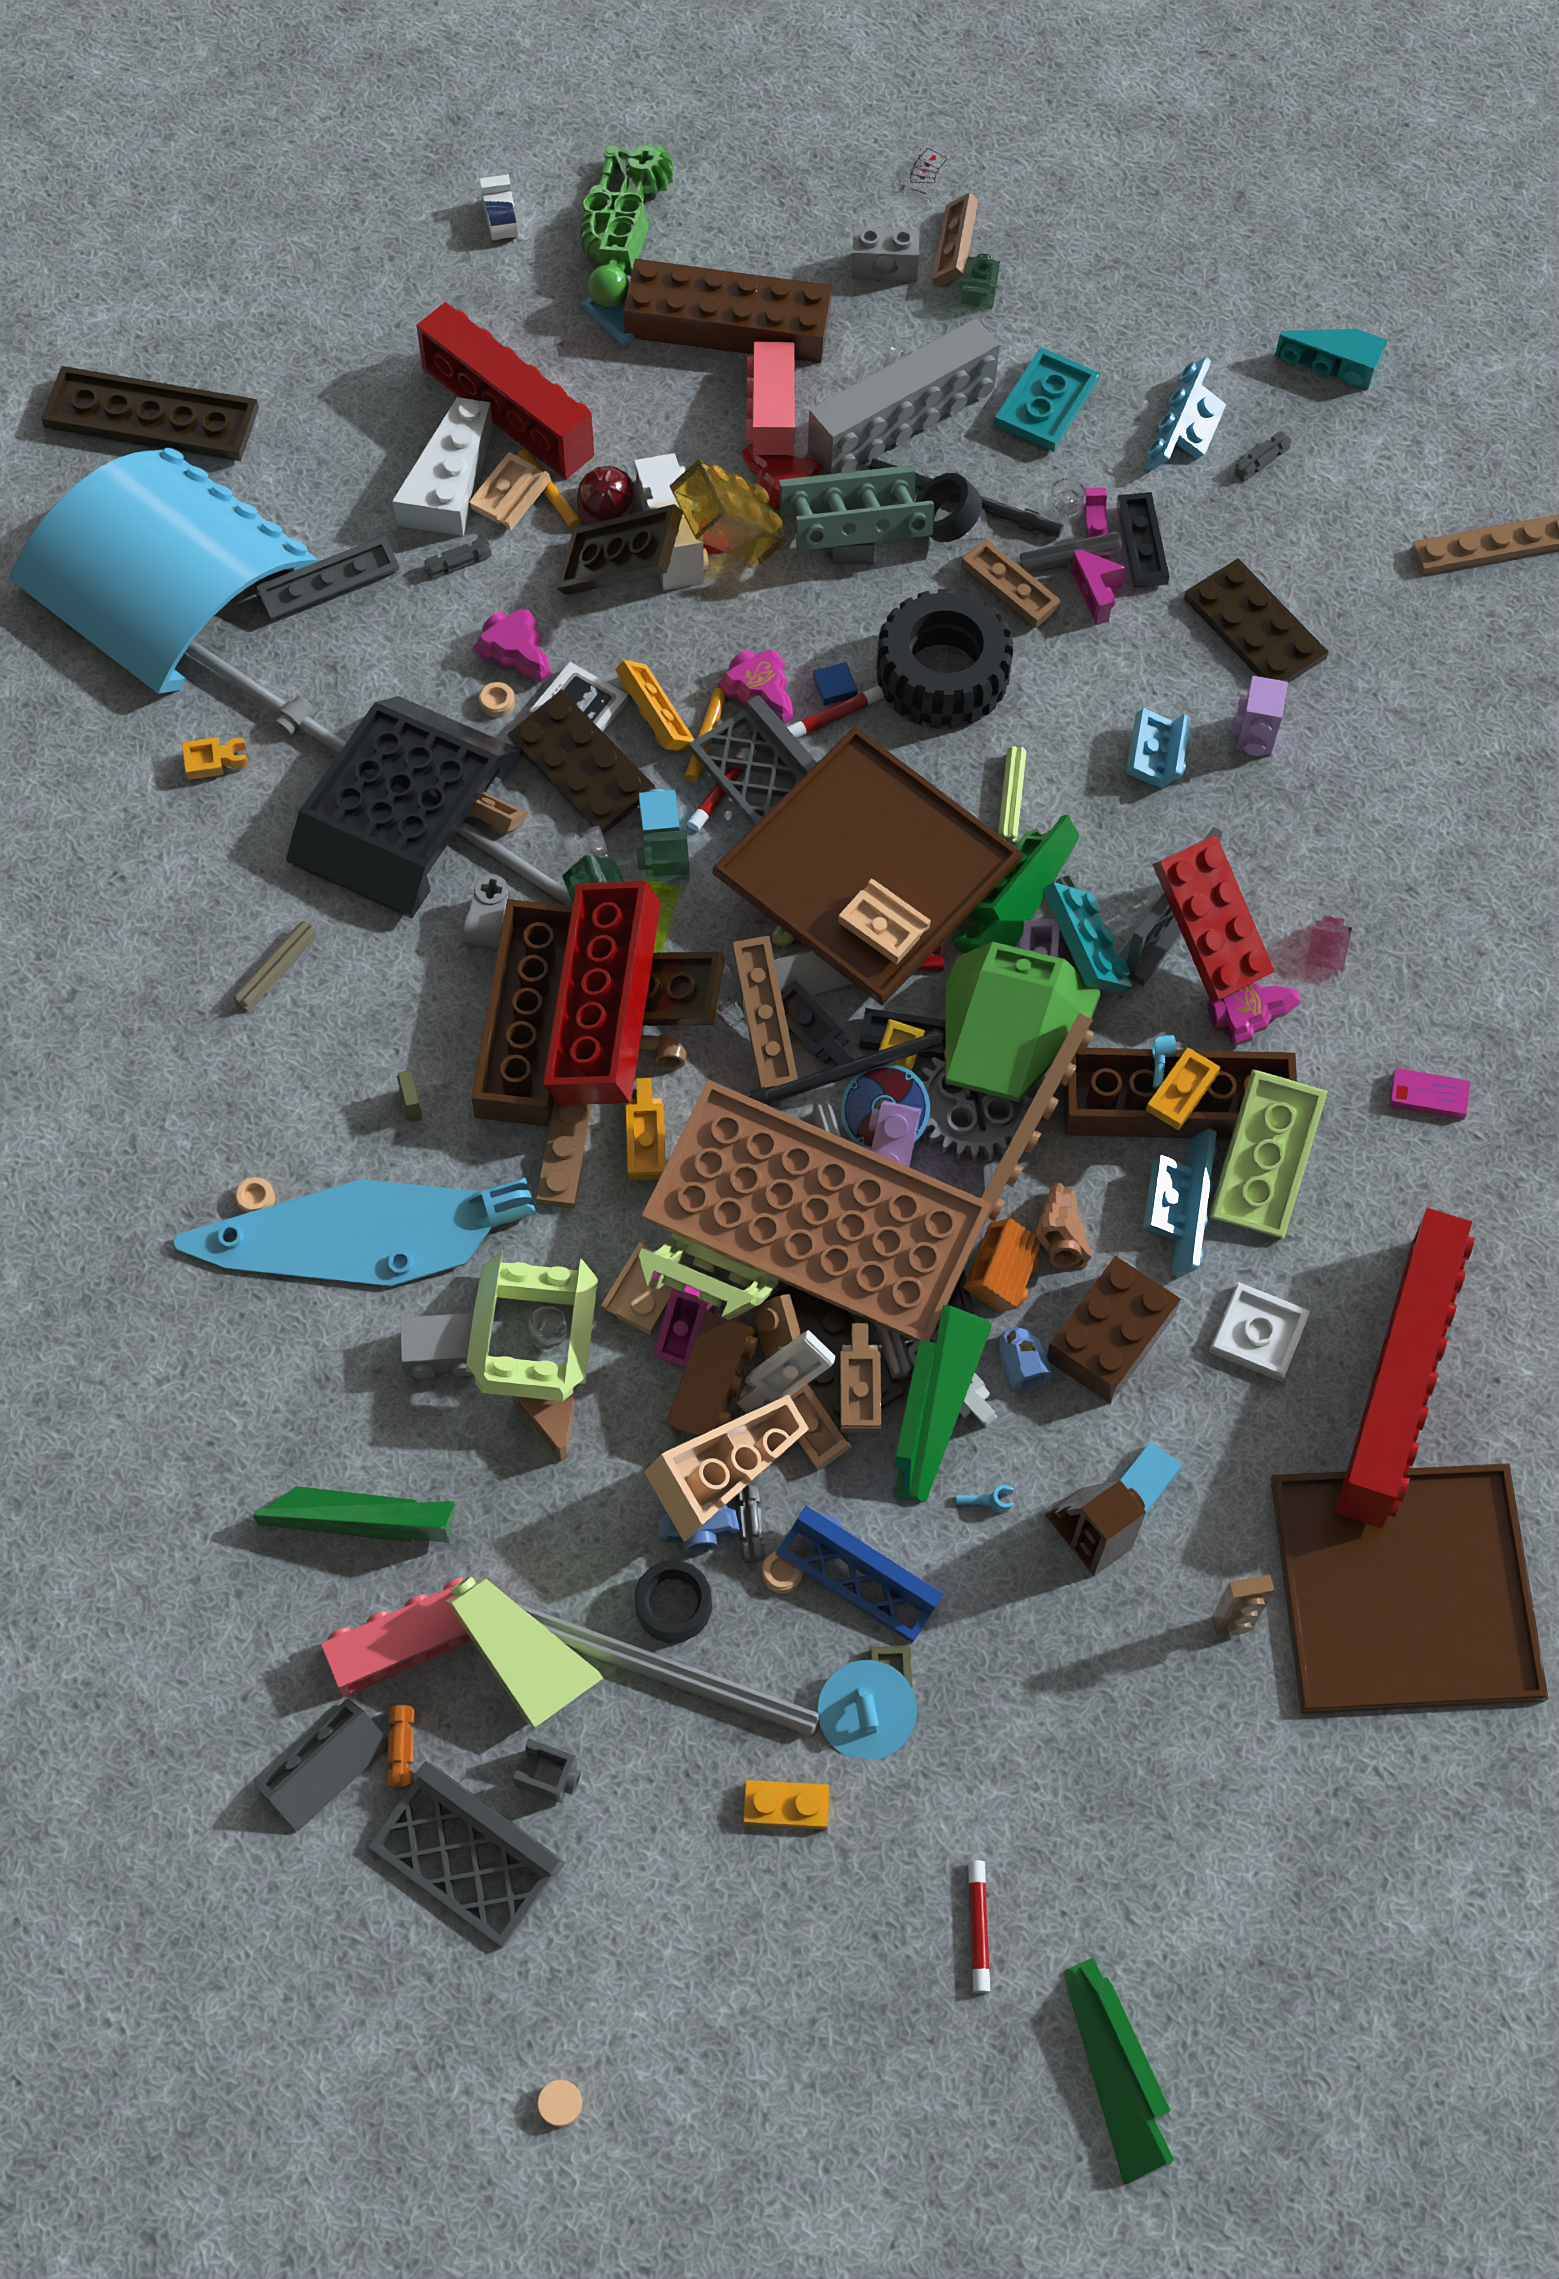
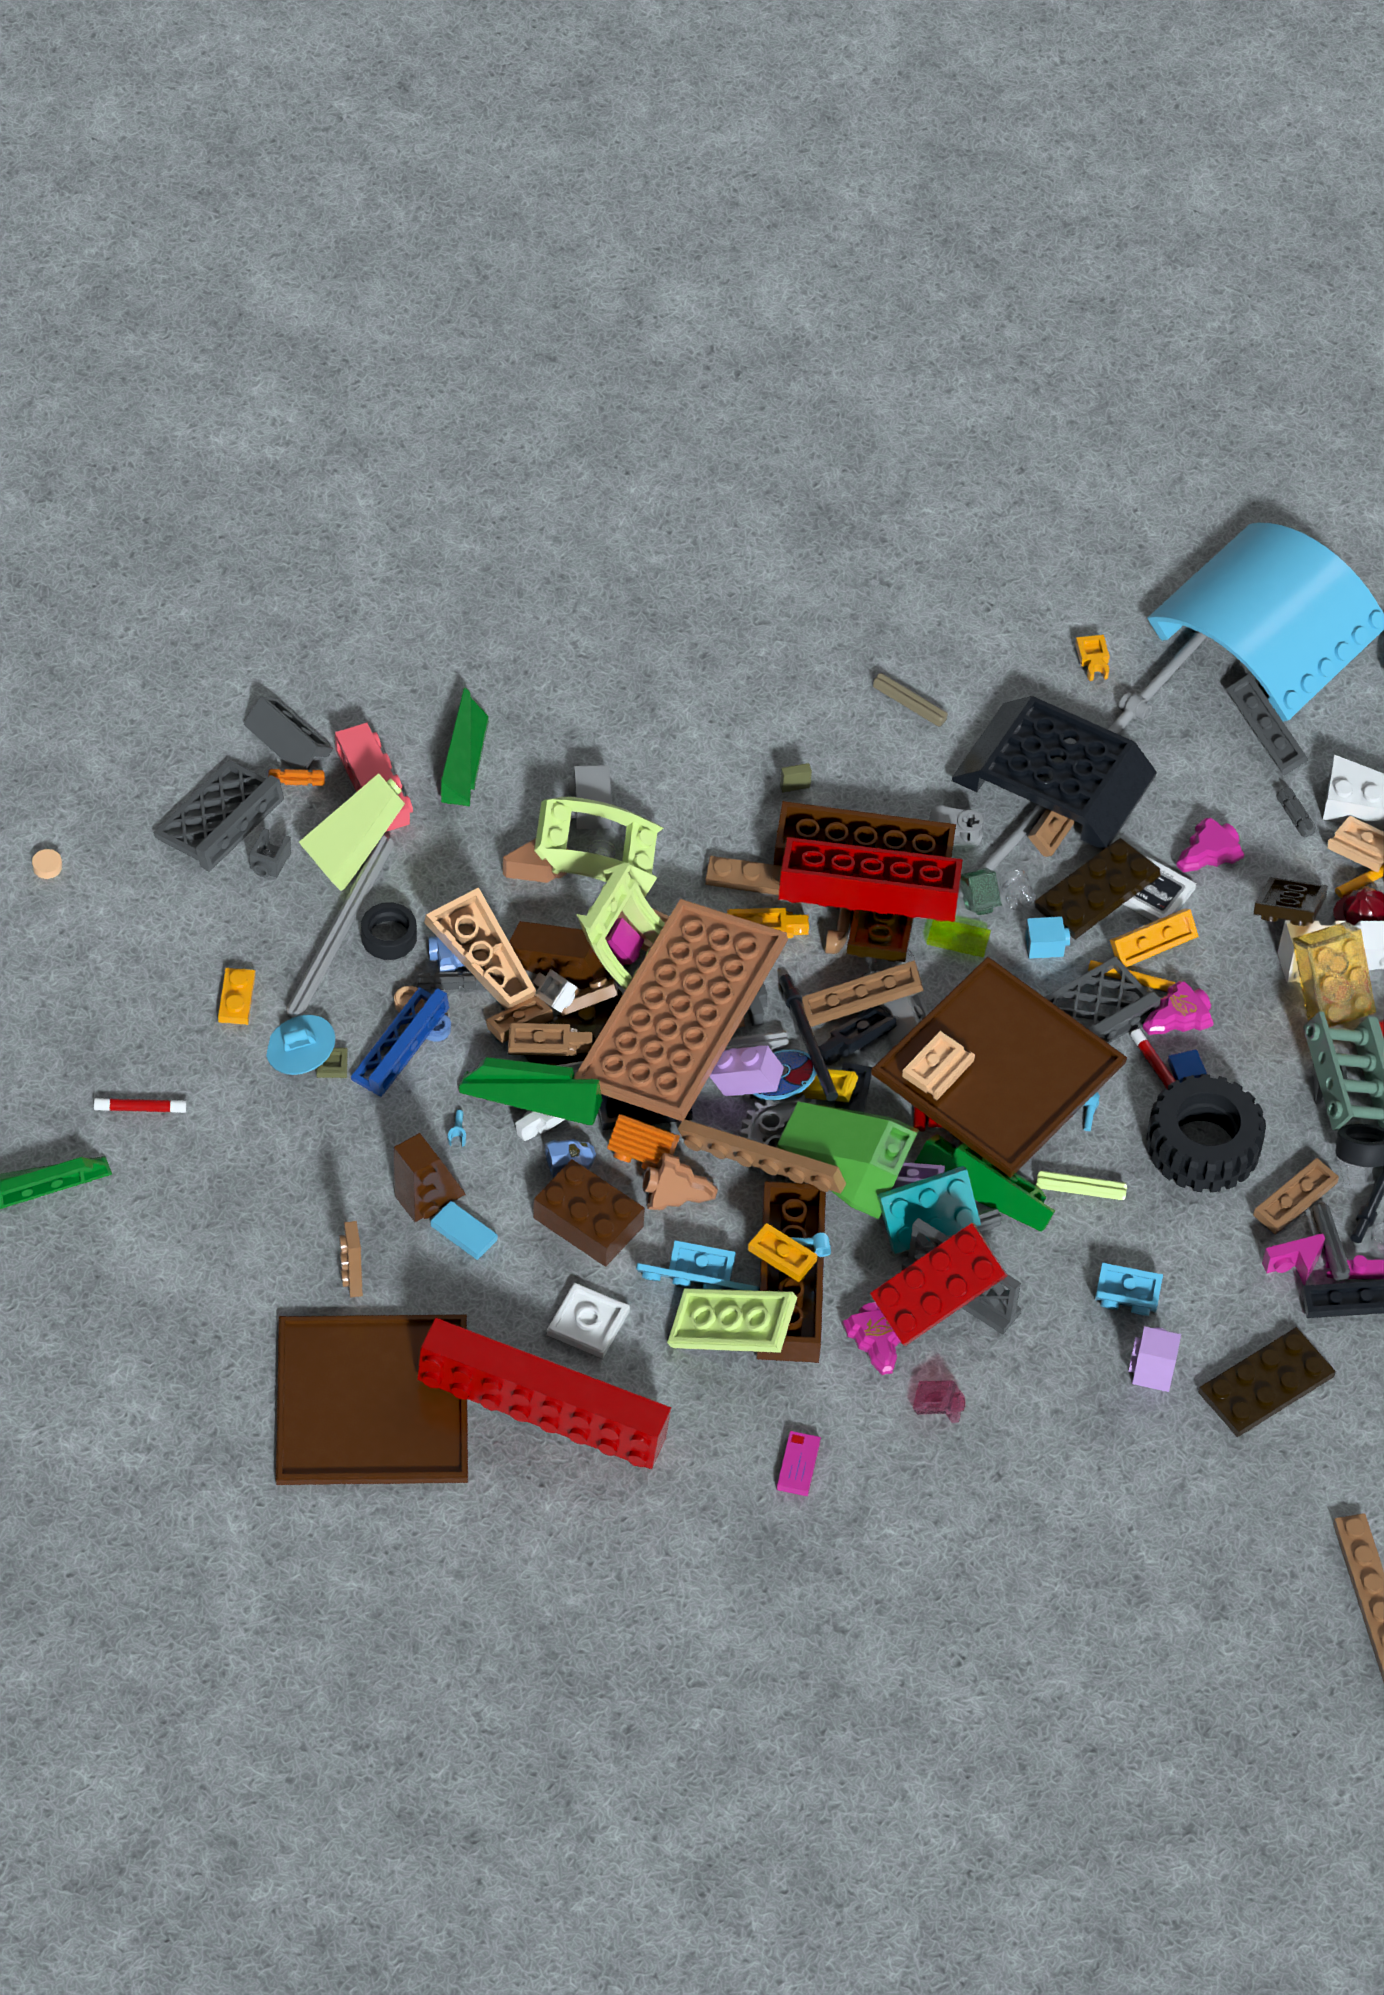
camera: 90 degrees right, 10 degrees down
(254, 1194) = (716, 692): light nougat tile -> none
(362, 1232) = (685, 753): medium azure wing -> none
(496, 699) = (1159, 838): light nougat tile -> none
(664, 856) = (1010, 941): clear green brick -> none
(716, 795) = (1066, 977): bar -> none

